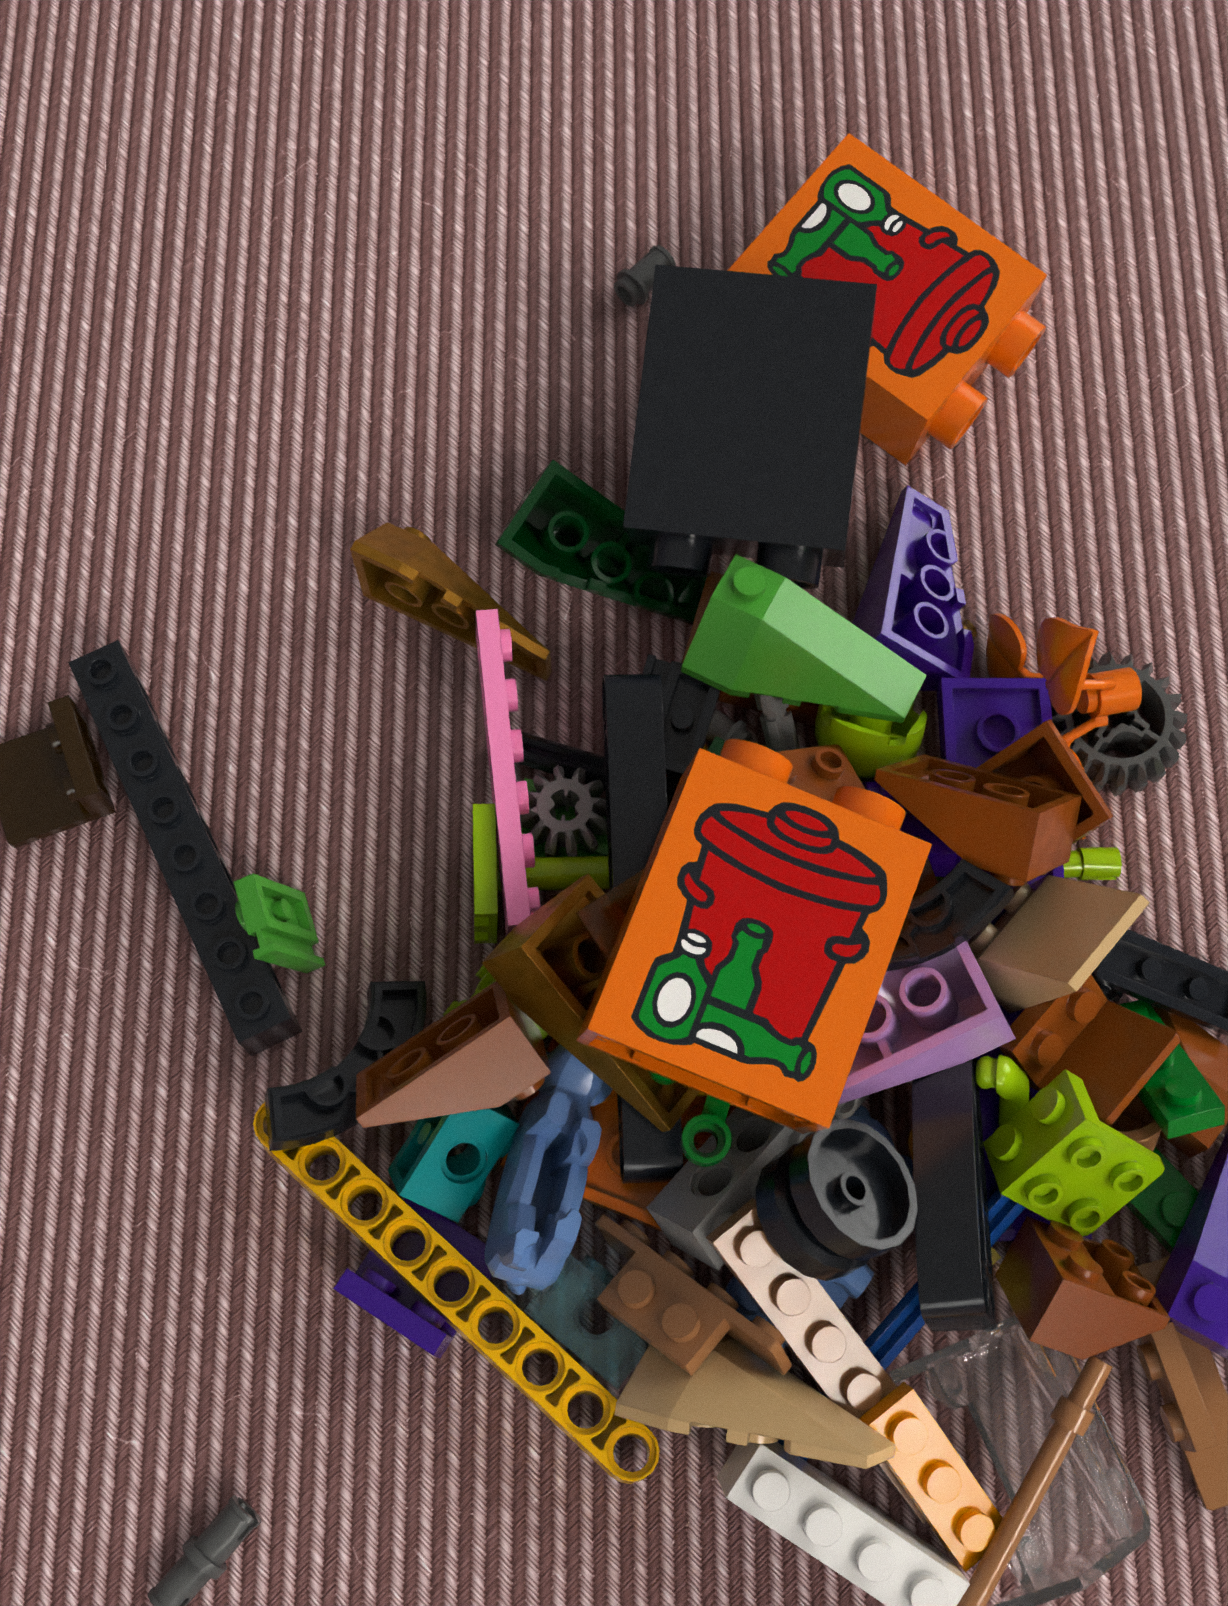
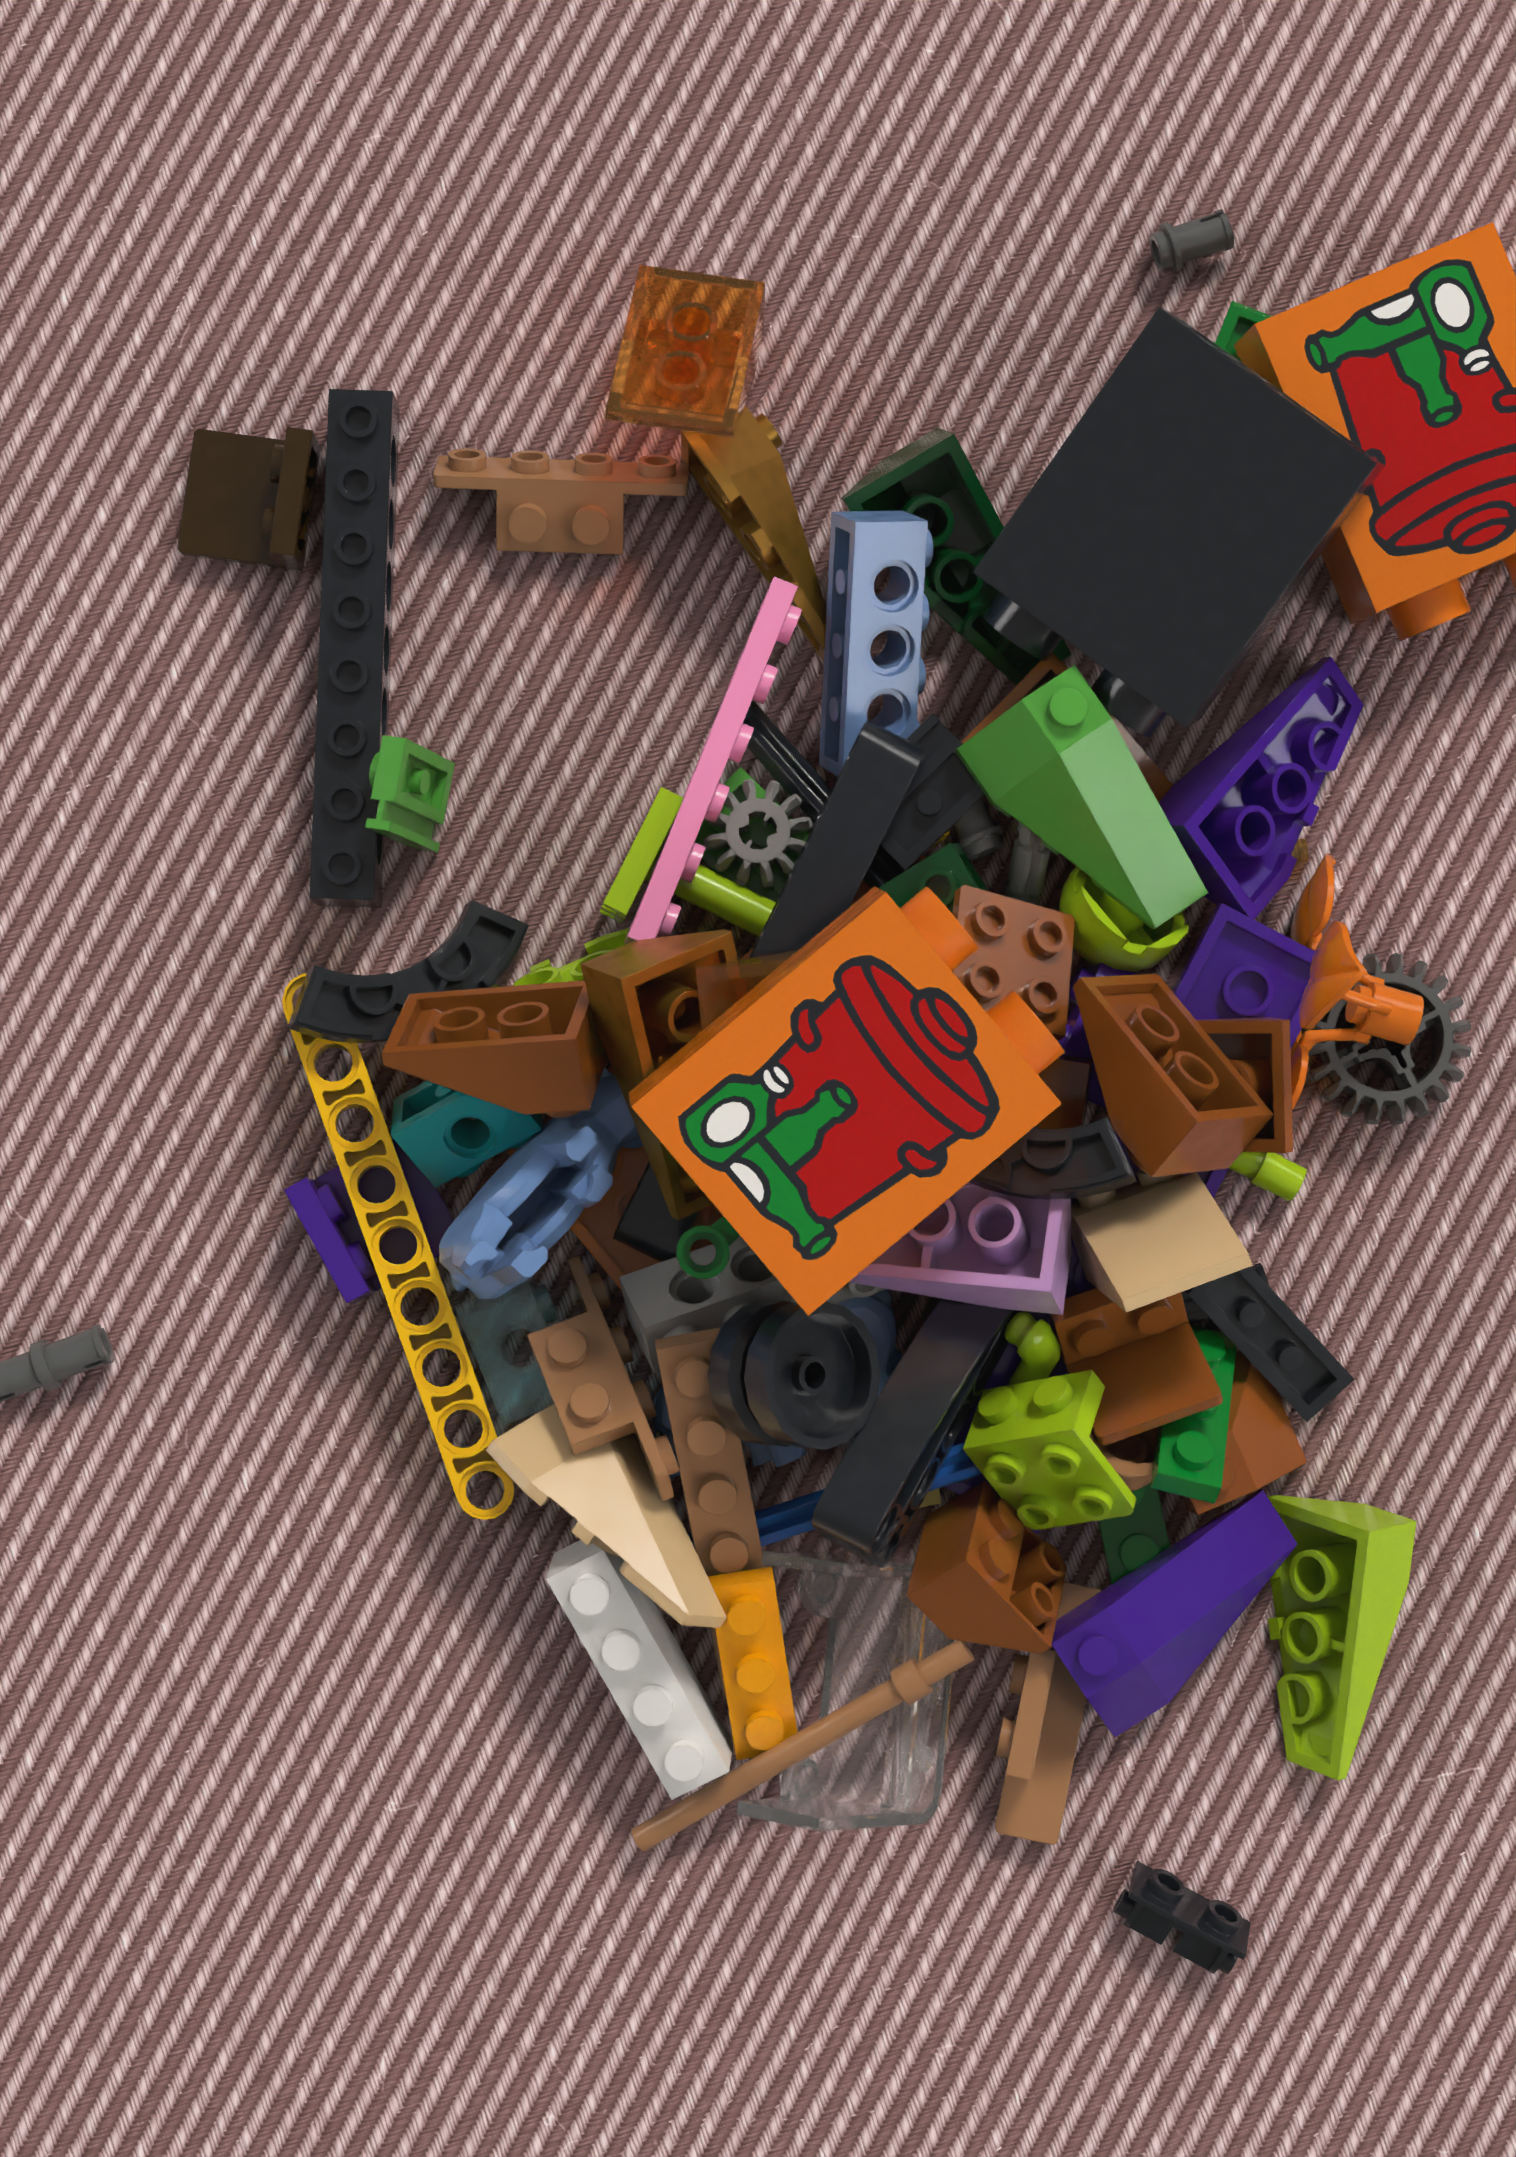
camera: 25 degrees right, 15 degrees up
(289, 666) = (560, 502): none -> medium nougat bracket
(325, 499) = (688, 351): none -> clear orange slope
(552, 615) = (859, 549): none -> medium blue brick

